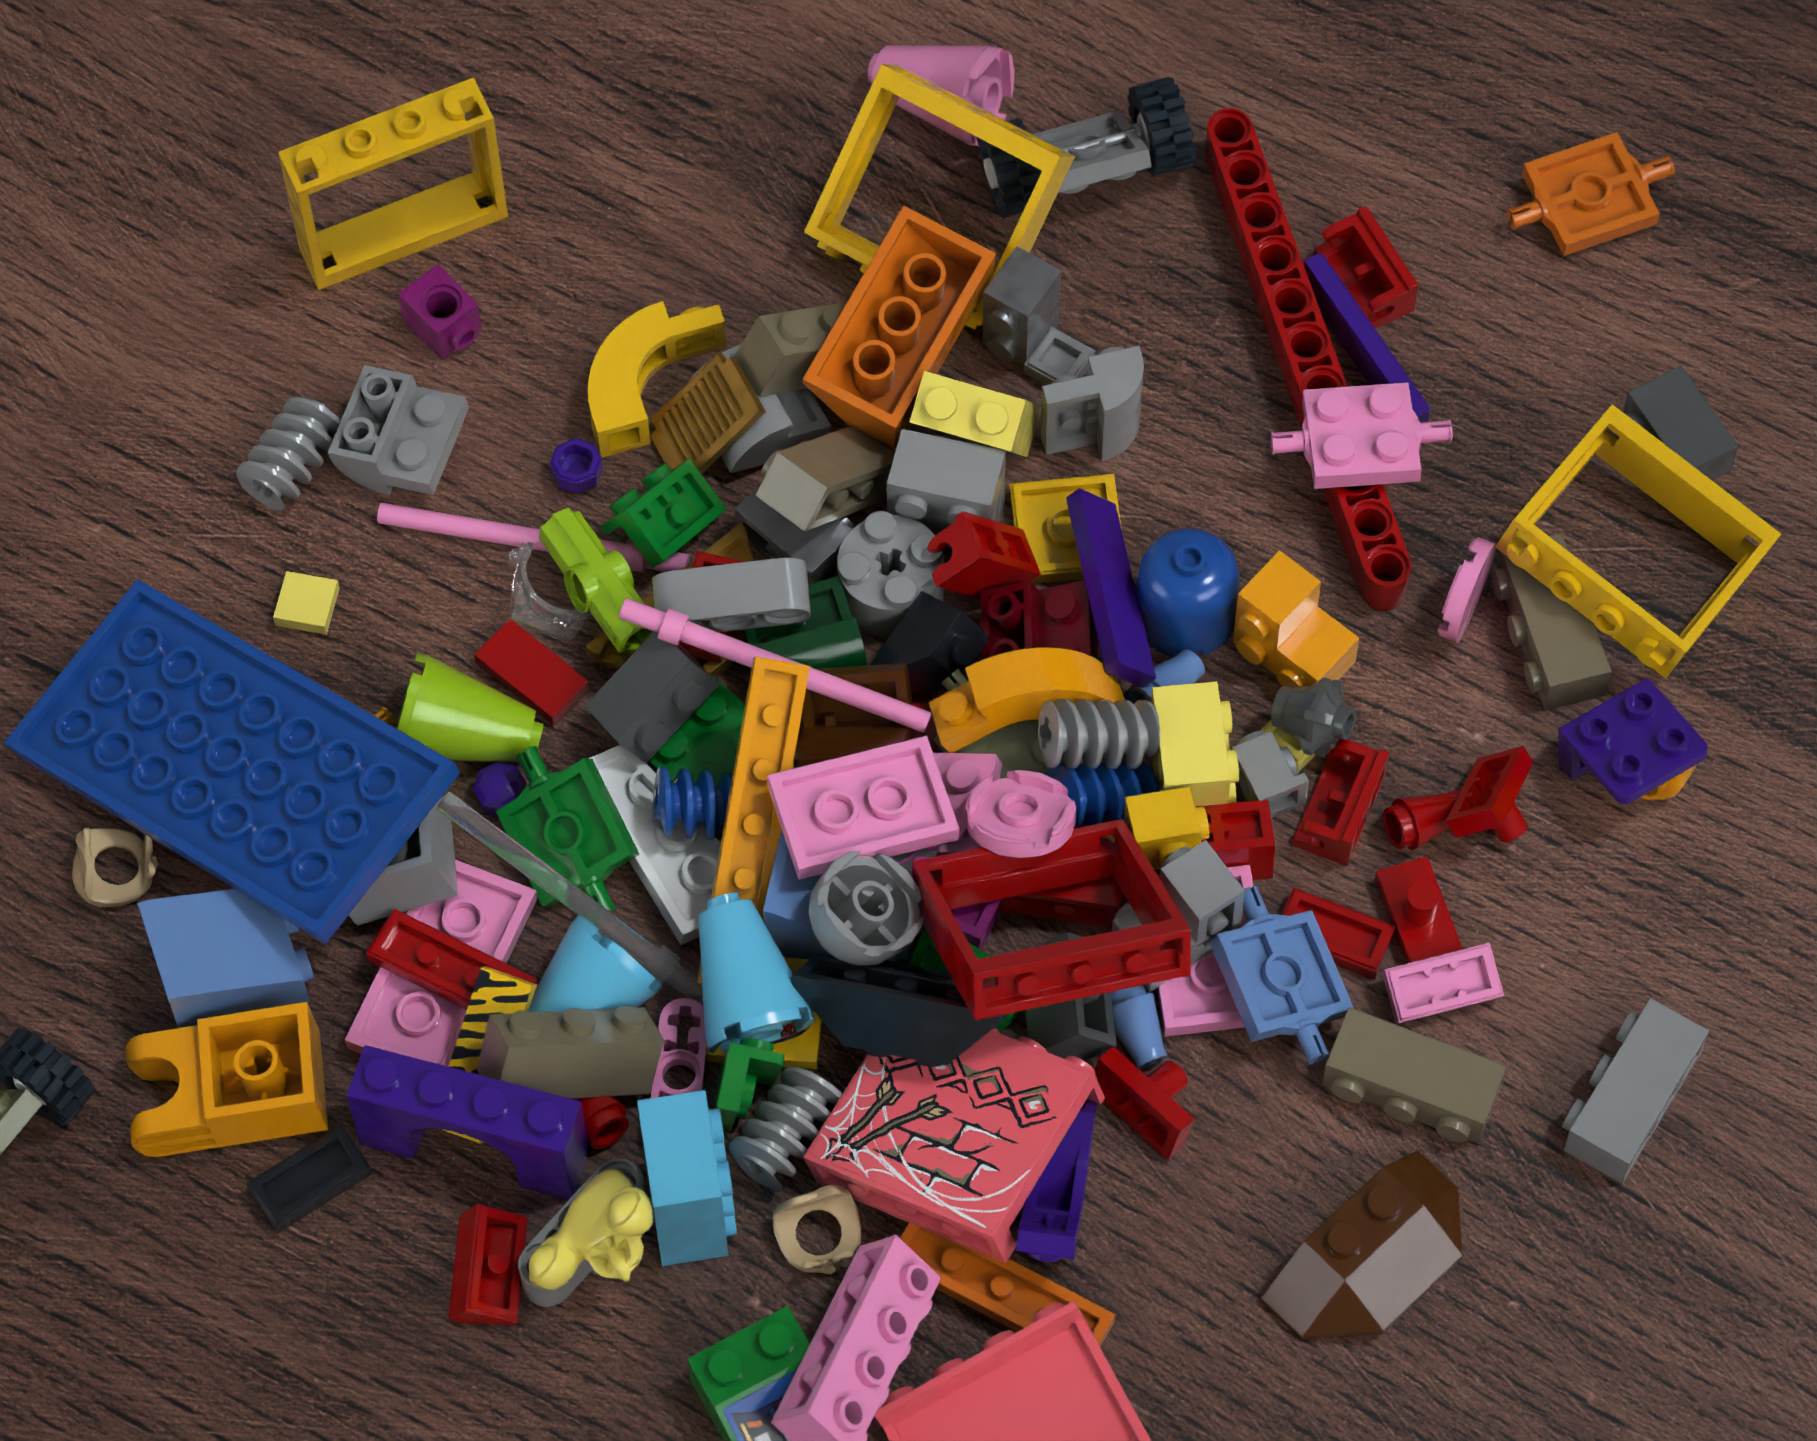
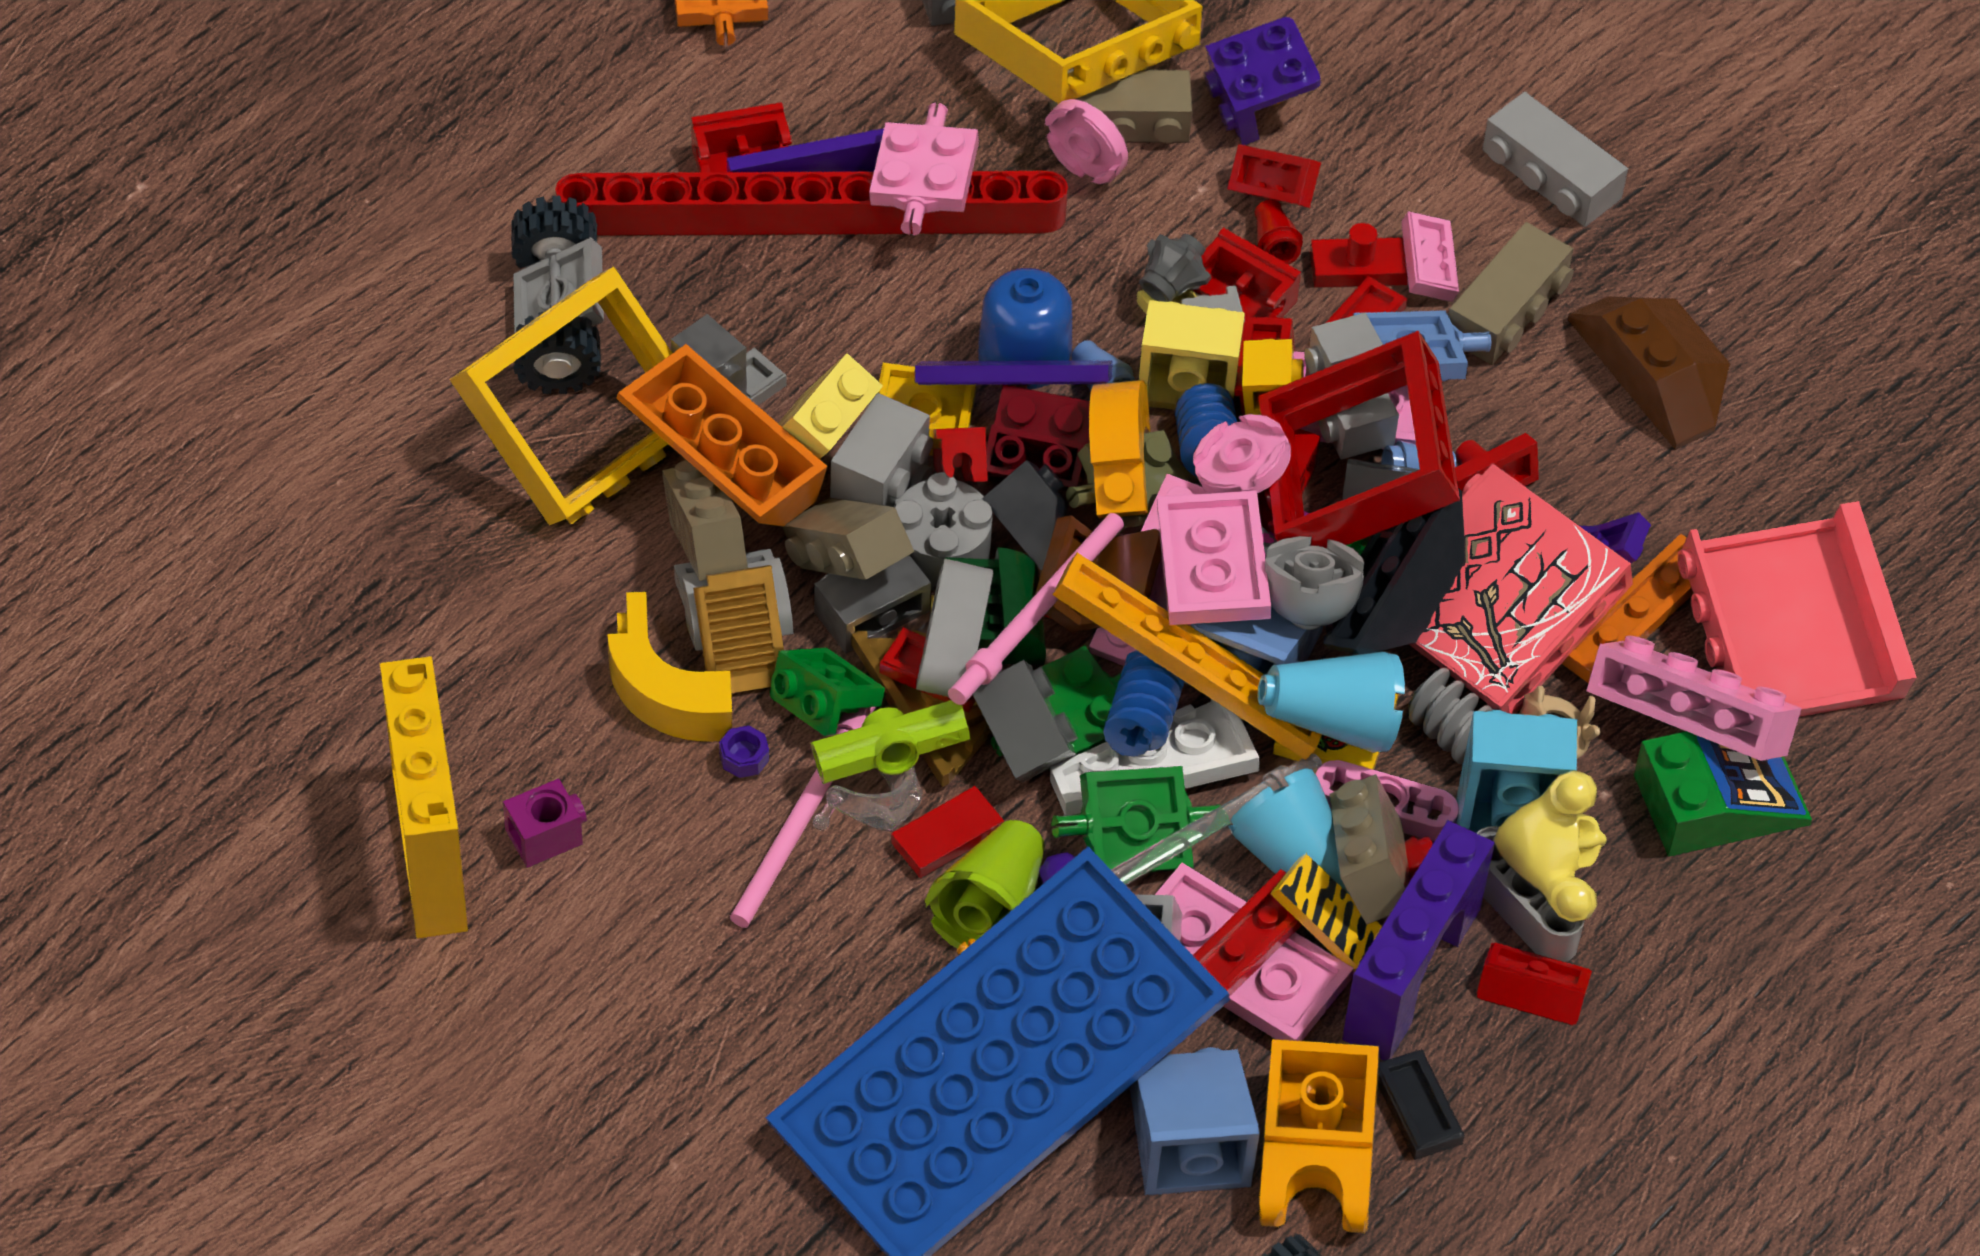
camera: 80 degrees left, 10 degrees down
(91, 886) = (1058, 1222): tan piece -> none
(286, 450) = (658, 971): light grey piece -> none
(306, 602) = (819, 997): light yellow tile -> none
(396, 432) = (671, 874): light grey brick -> none
(741, 1069) = (1425, 737): green bracket -> none
(970, 71) = (428, 399): bright pink cone -> none
(1096, 407) = (828, 325): light grey brick -> none
(1097, 732) = (1174, 392): light grey piece -> none
(1287, 630) = (1091, 263): light orange brick -> none

